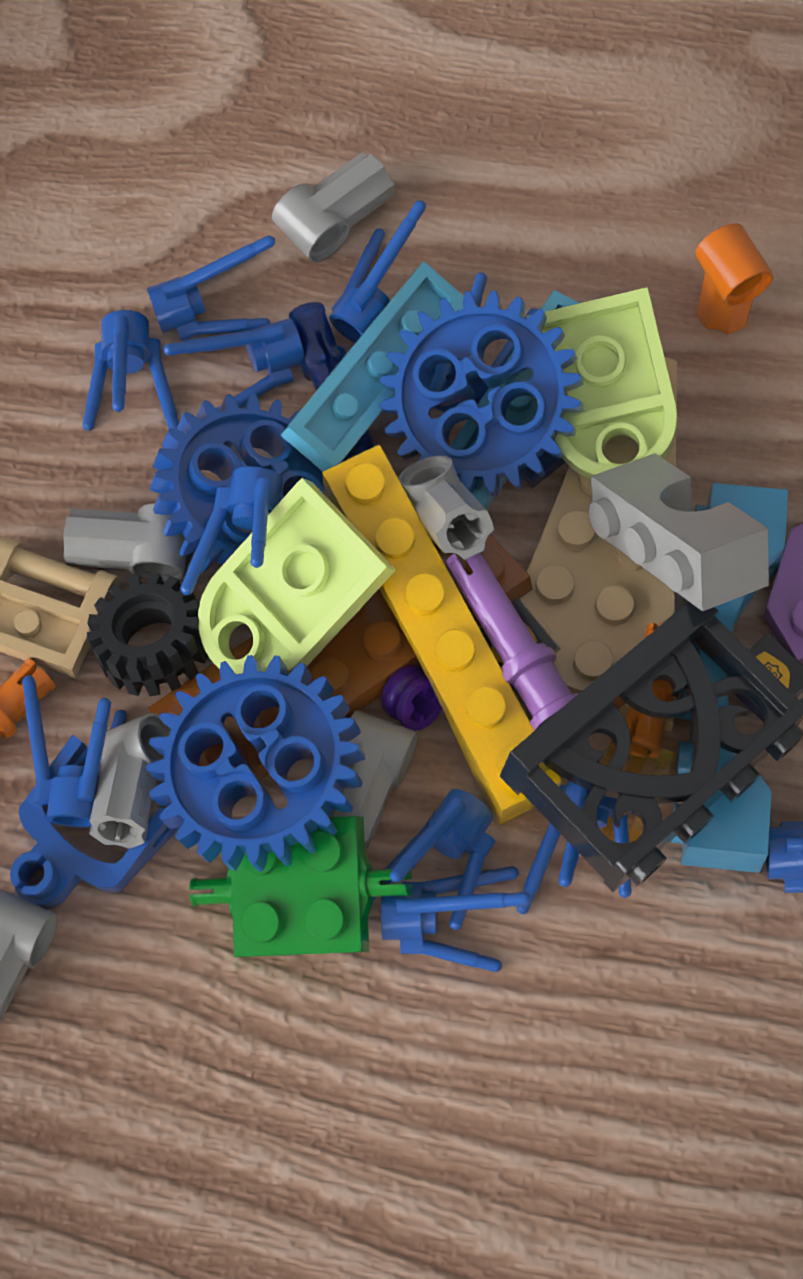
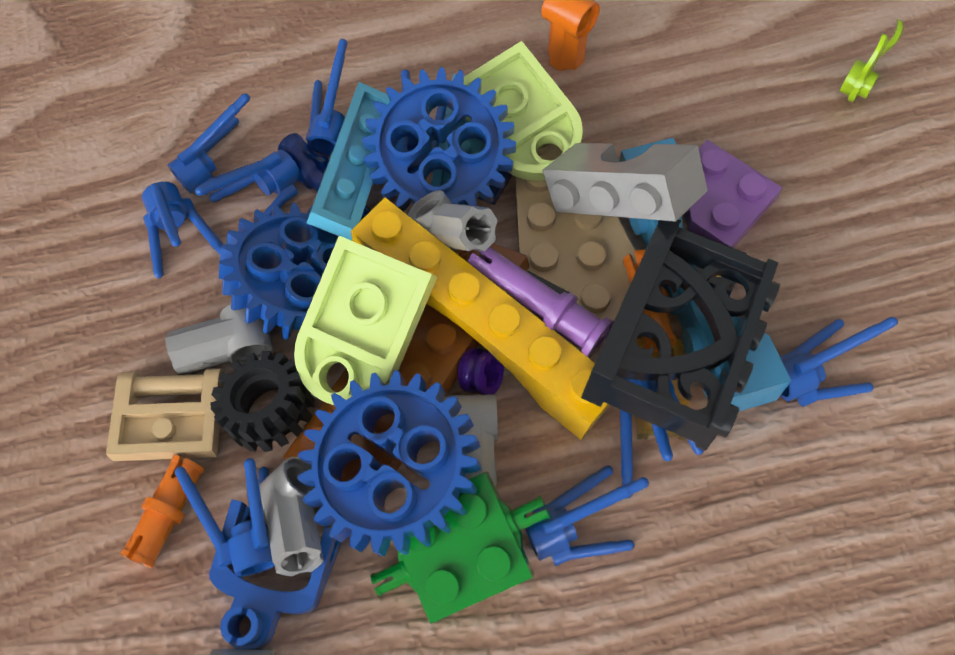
camera: 25 degrees left, 5 degrees down
(249, 500) = (305, 272): blue plant -> none
(322, 215) = (276, 80): light grey piece -> none
(451, 830) = (554, 456): blue plant -> none

